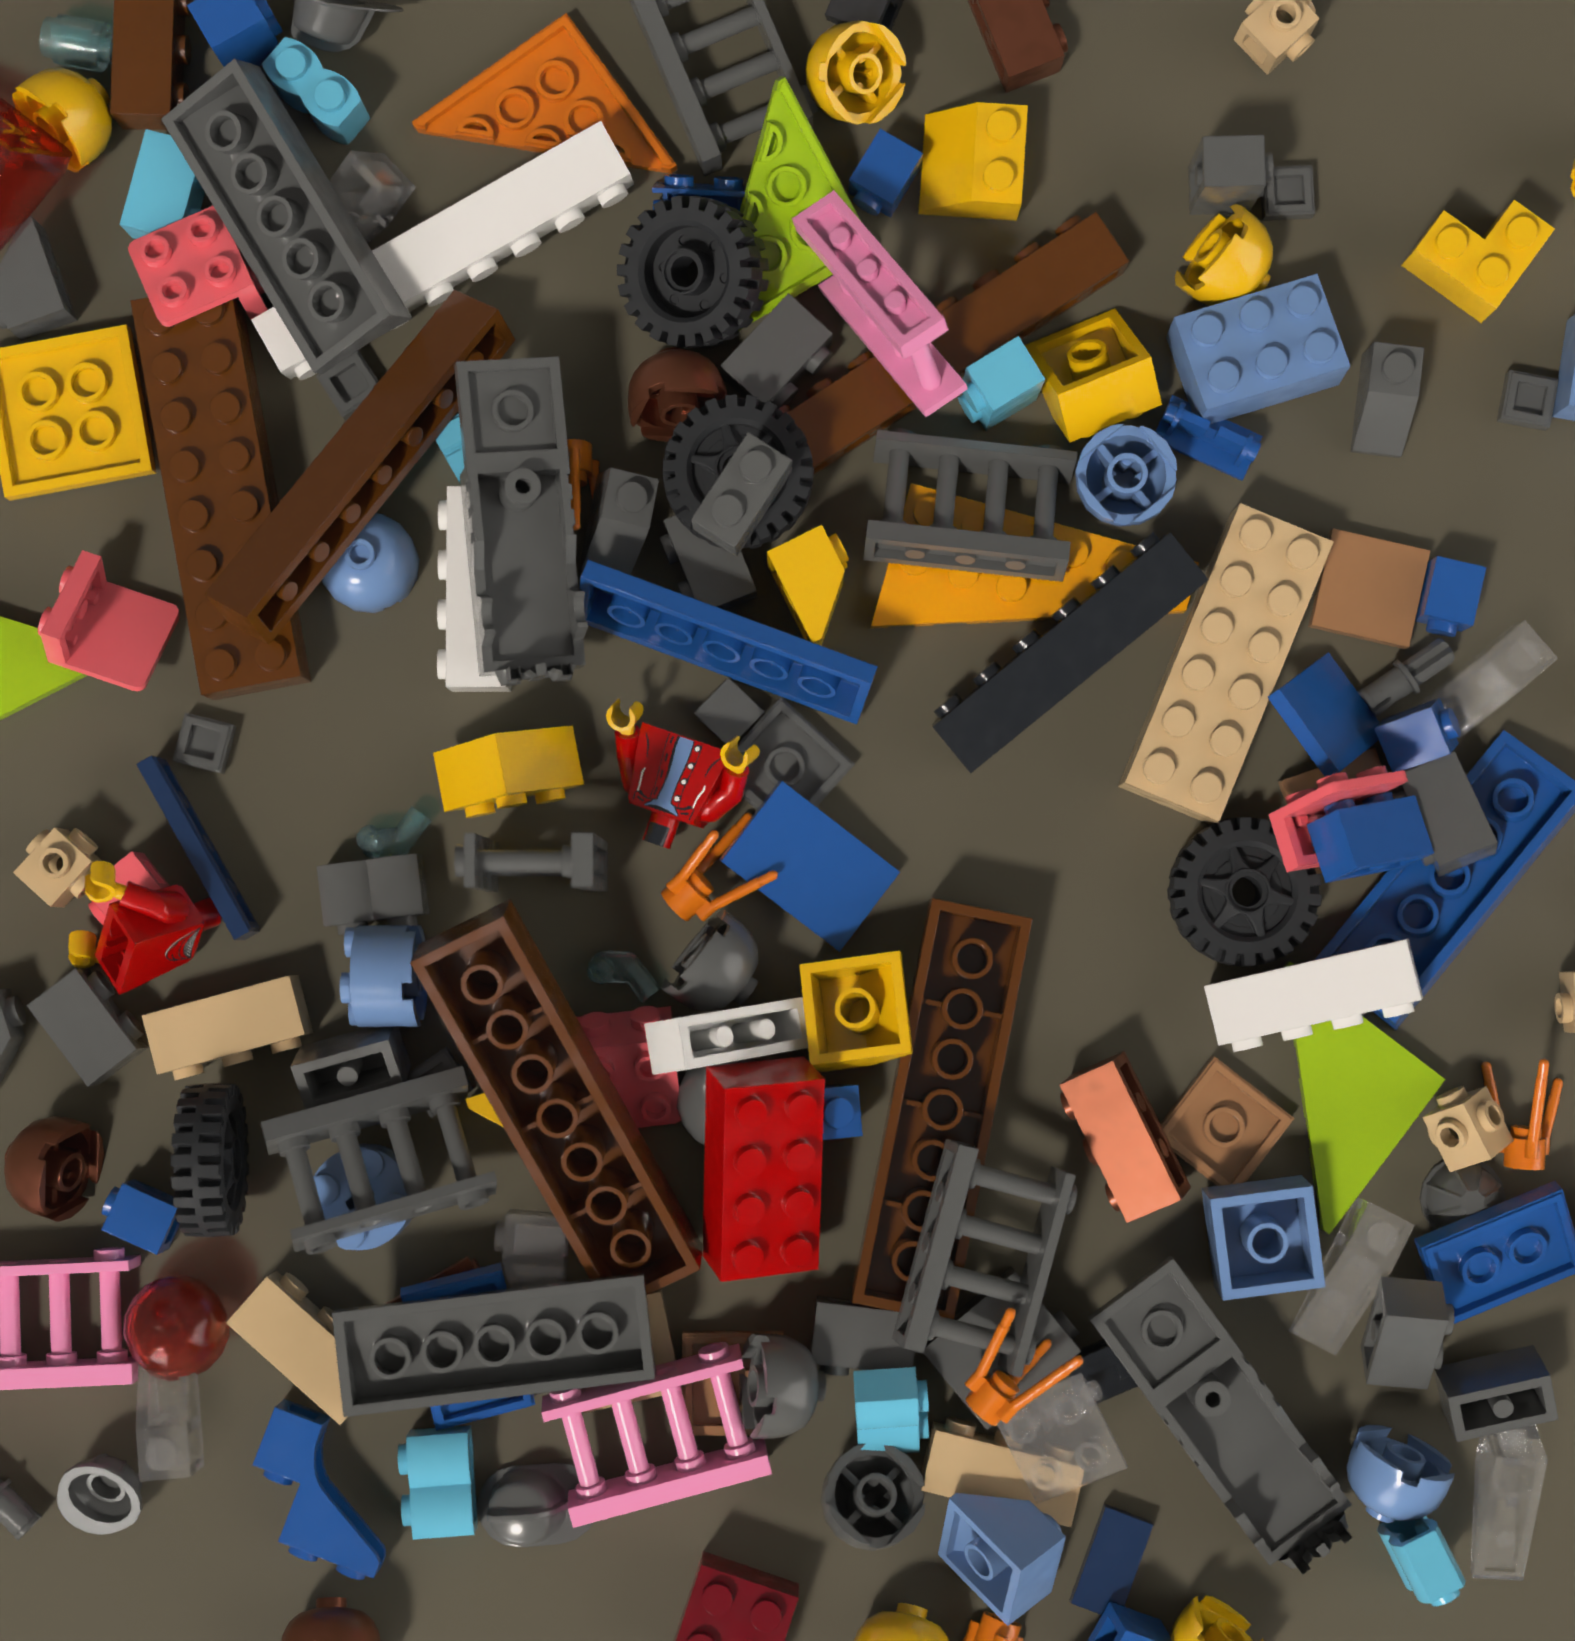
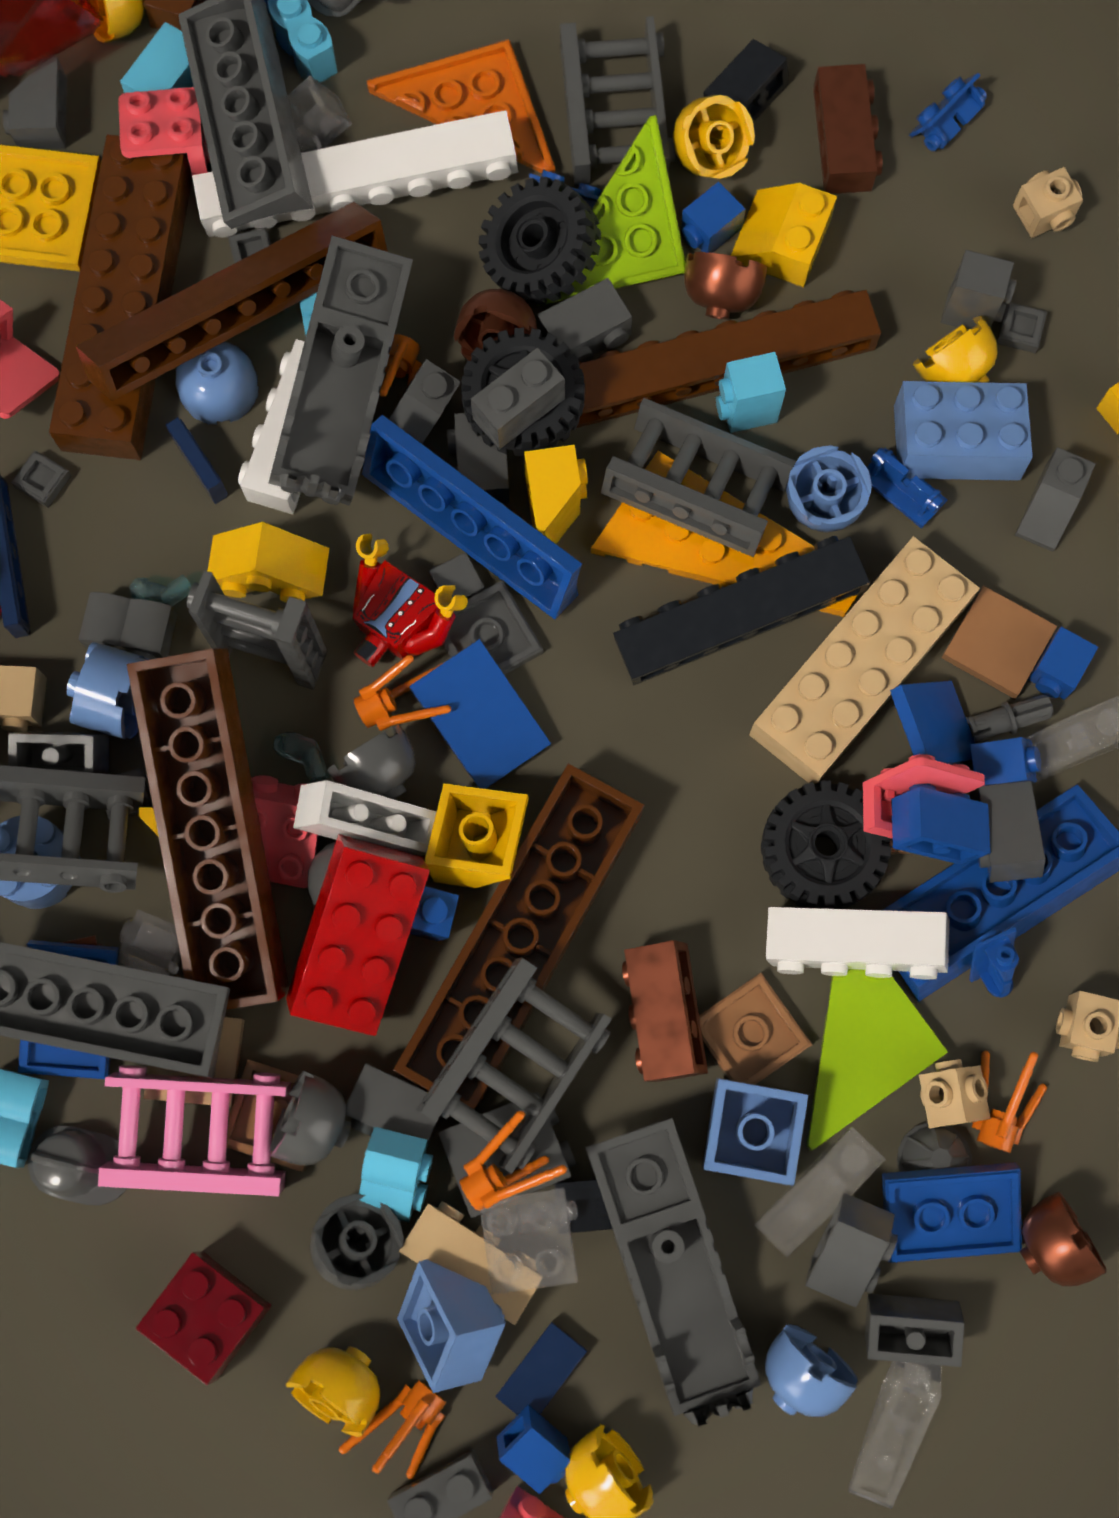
camera: 15 degrees right, 10 degrees down
(380, 666) = (197, 460): none -> dark blue tile
(880, 303) = (675, 295): bright pink fence -> none
(930, 251) = (723, 283): none -> copper cylinder
(1095, 375) = (829, 412): yellow slope -> none
(1423, 1560) = (808, 1453): medium azure brick -> none
(1473, 968) = (995, 961): none -> blue hinge

